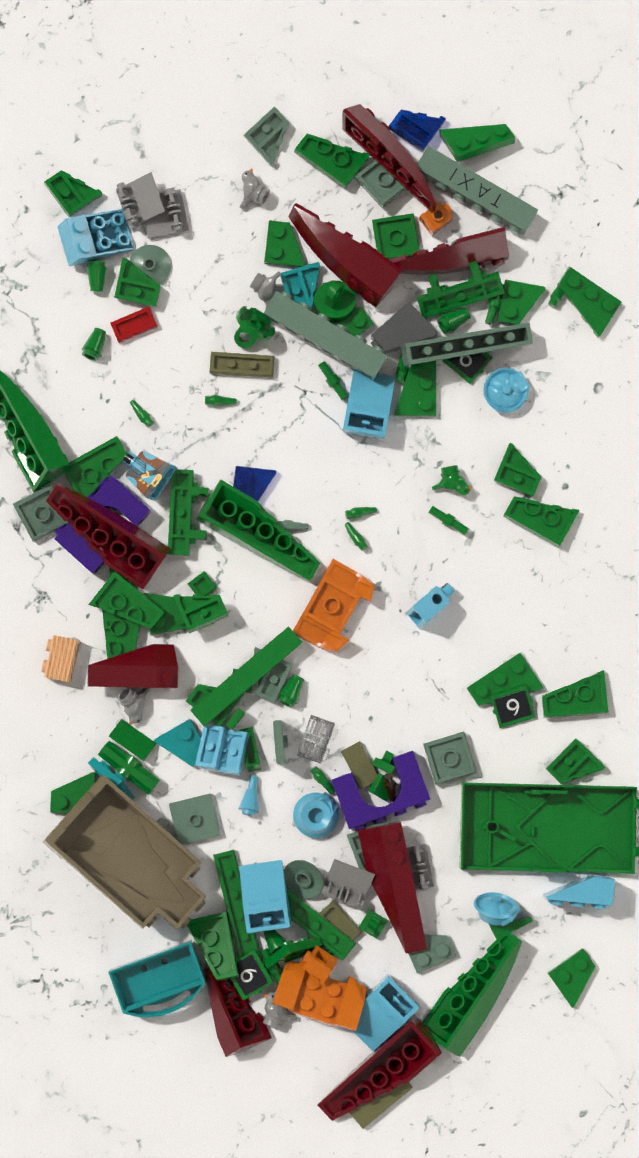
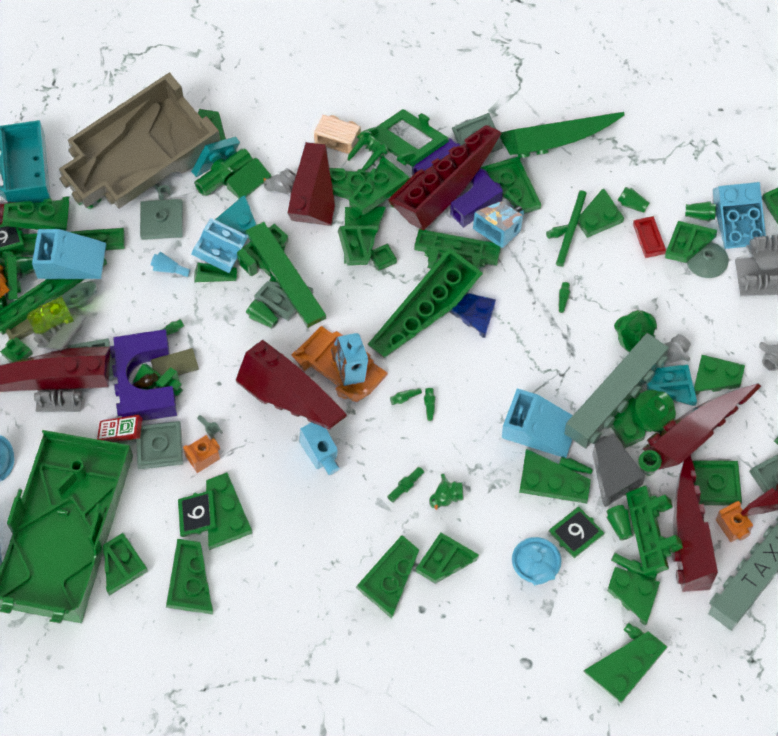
camera: 105 degrees right, 25 degrees down
(56, 585) = (408, 137): none -> green piece
(74, 621) = (370, 142): none -> green piece
(115, 376) = (599, 215): none -> green wing
(139, 402) = (571, 228): none -> green bar
(242, 364) = (597, 322): olive tile -> none
(280, 740) = (214, 290): sand green plate -> none
(290, 525) = (427, 339): sand green piece -> none
(316, 739) = (209, 327): clear brick -> none
(316, 815) = (136, 316): medium azure piece -> none
(333, 380) = (571, 398): green bar -> none
(339, 591) = (348, 353): none -> medium azure torso
(342, 893) = (49, 316): none -> clear neon green leg
(380, 648) = (280, 382): none -> dark red wedge
(399, 295) = (649, 458): none -> green cone
(422, 714) = (210, 428): none -> sand green hand
(442, 798) = (120, 429): none -> tile
(456, 722) = (202, 459): none -> orange brick
(466, 344) = (591, 523): sand green brick -> none

